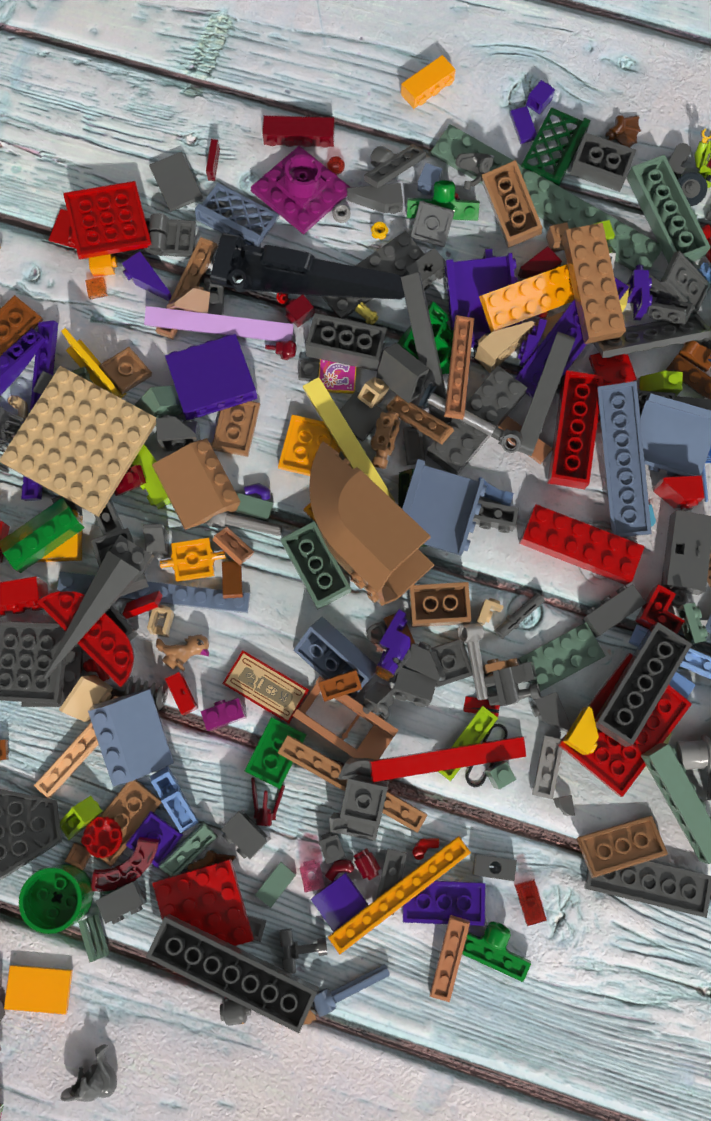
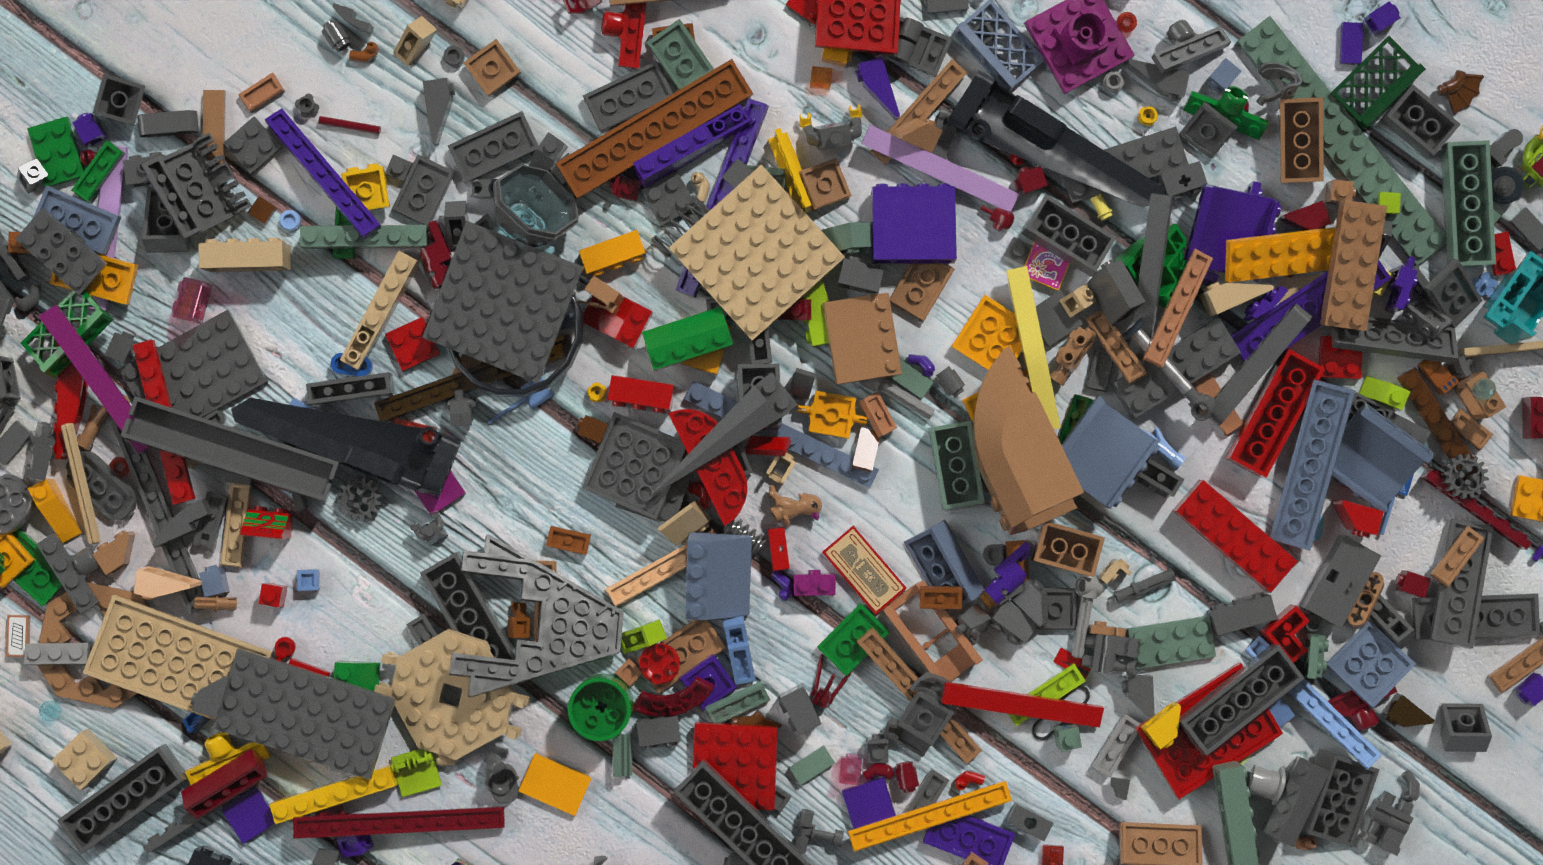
camera: 15 degrees right, 10 degrees up
(118, 325) = (833, 134): none -> dark grey torso
(198, 724) = (786, 586): none -> dark purple arm
(287, 497) = (950, 382): none -> dark grey brick

